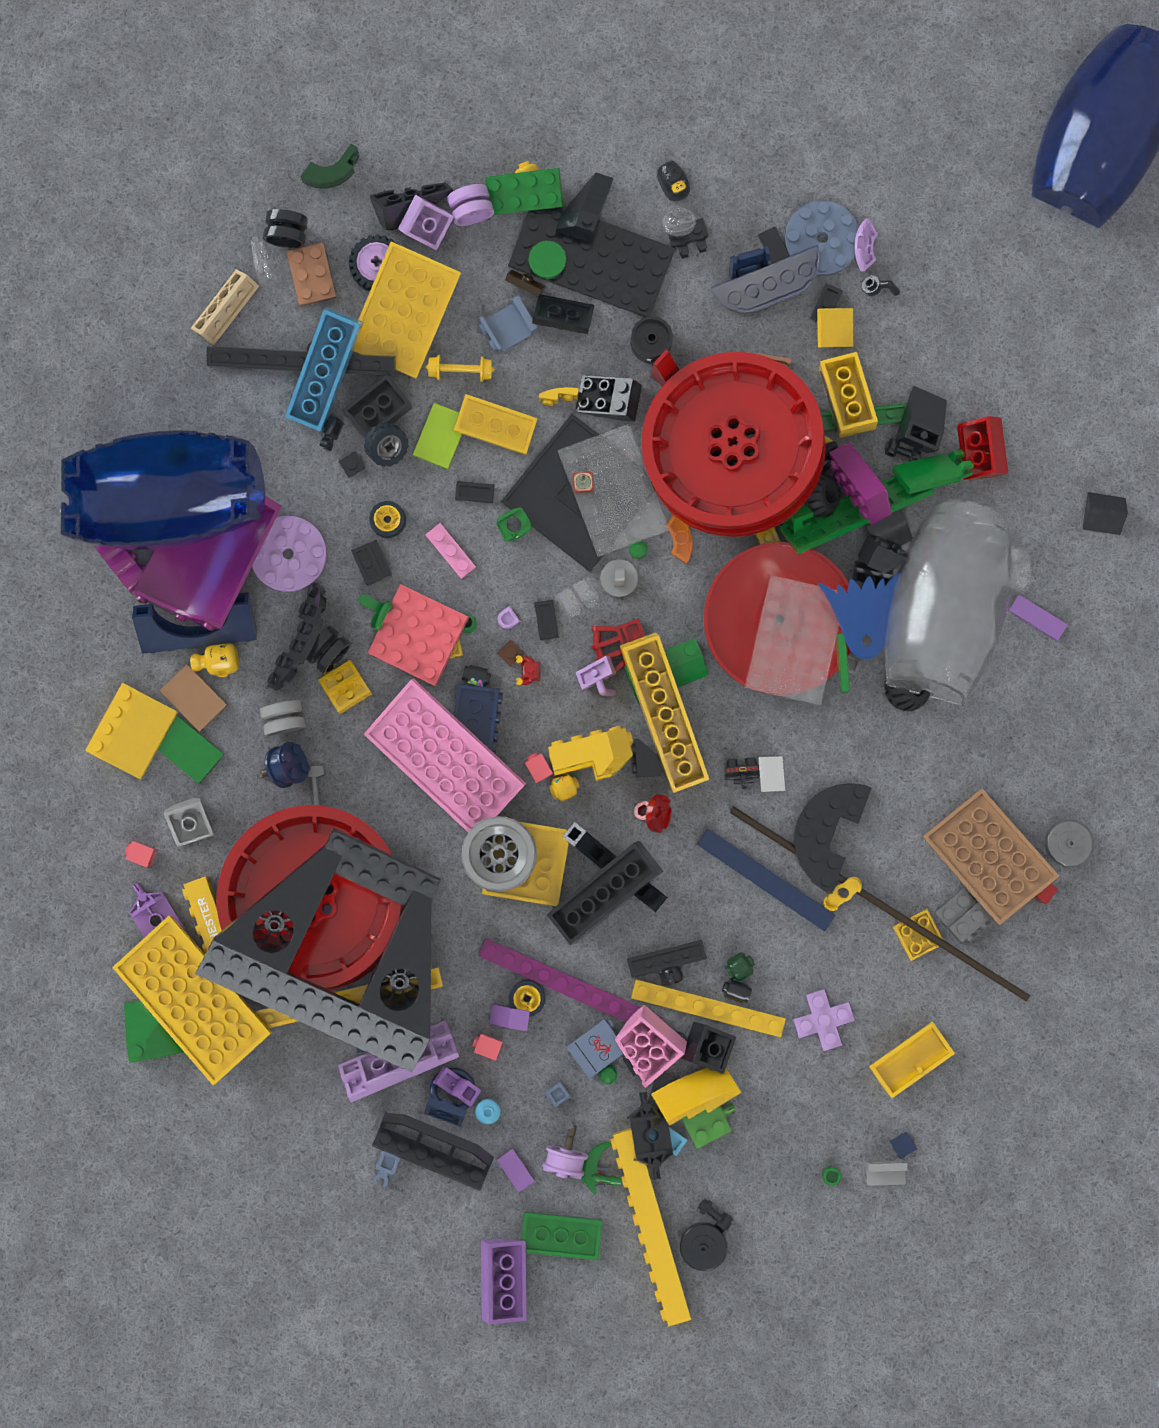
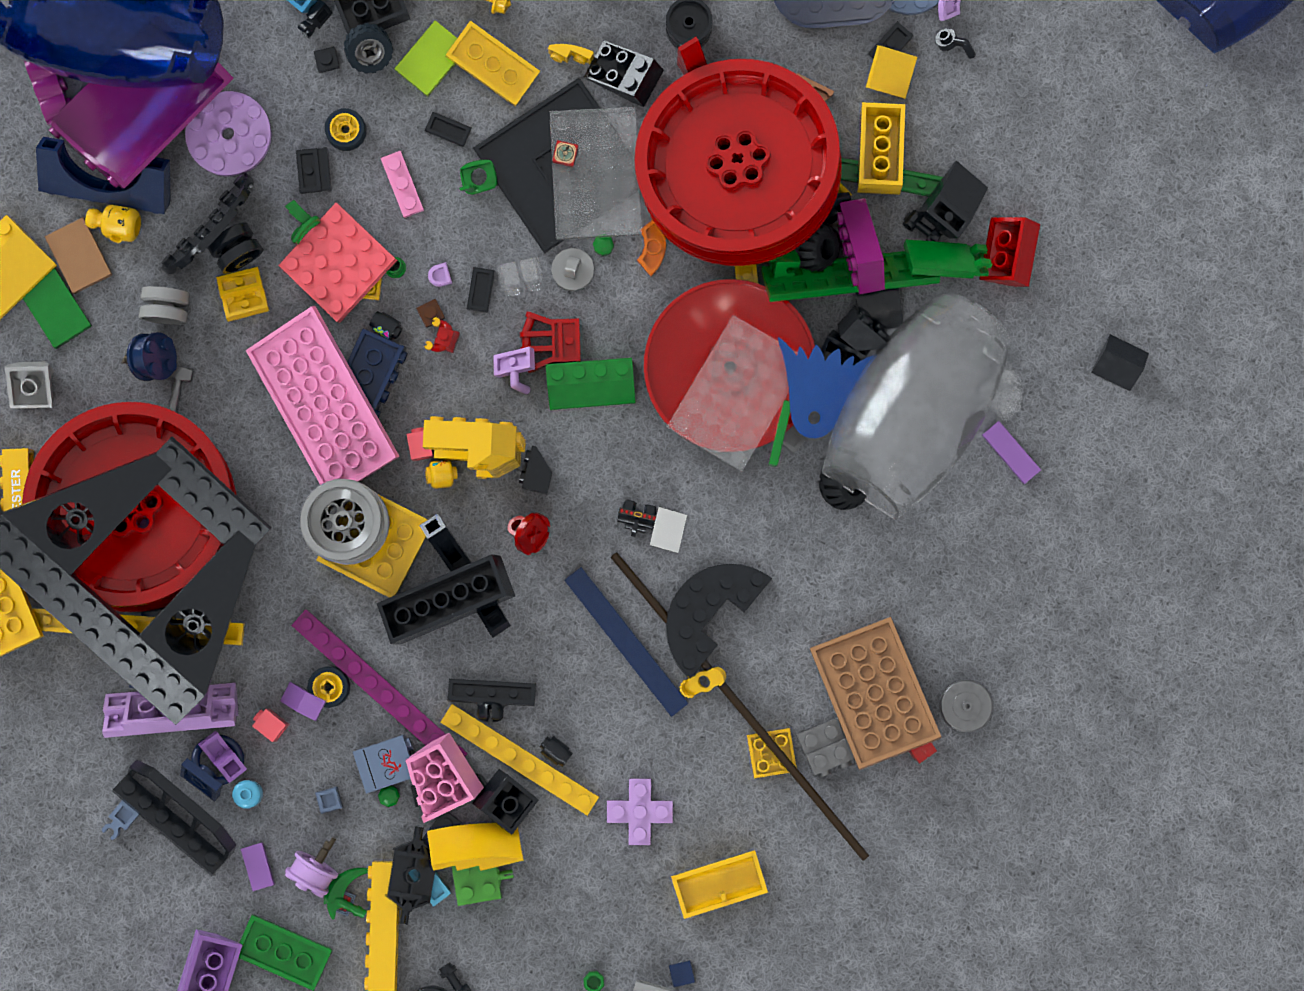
camera: 25 degrees right, 0 degrees up
(664, 712) = (571, 426): yellow brick -> none
(740, 966) = (567, 725): dark green head -> none

